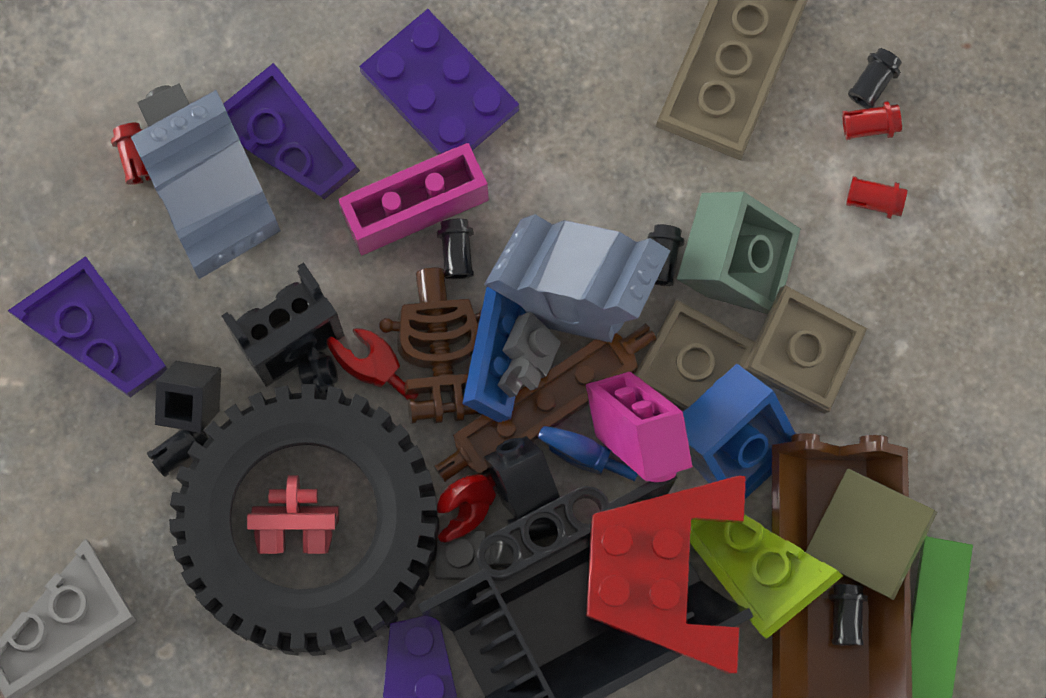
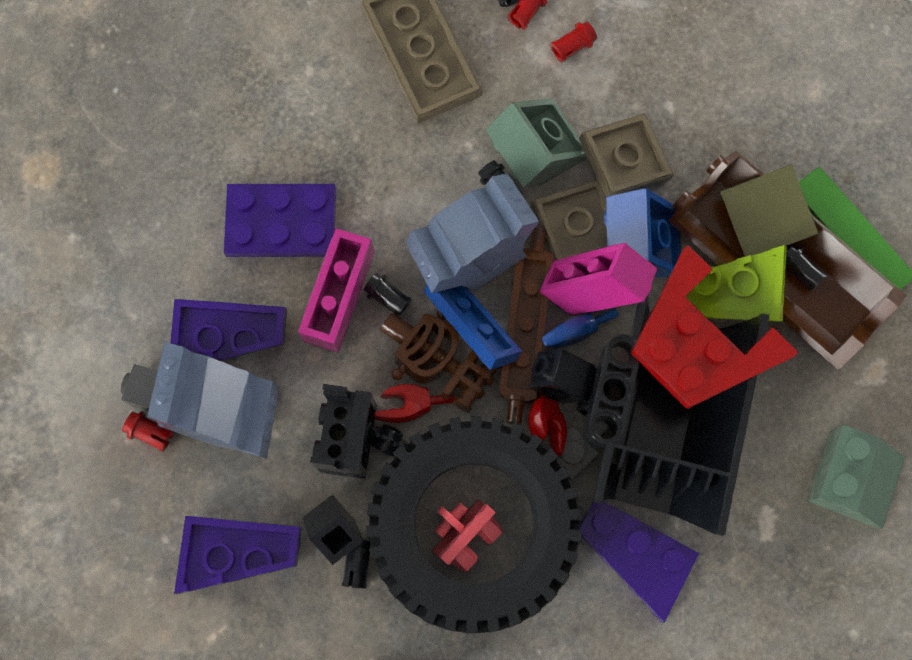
camera: 45 degrees left, 0 degrees up
(531, 353) = (491, 304): dark grey plate -> none

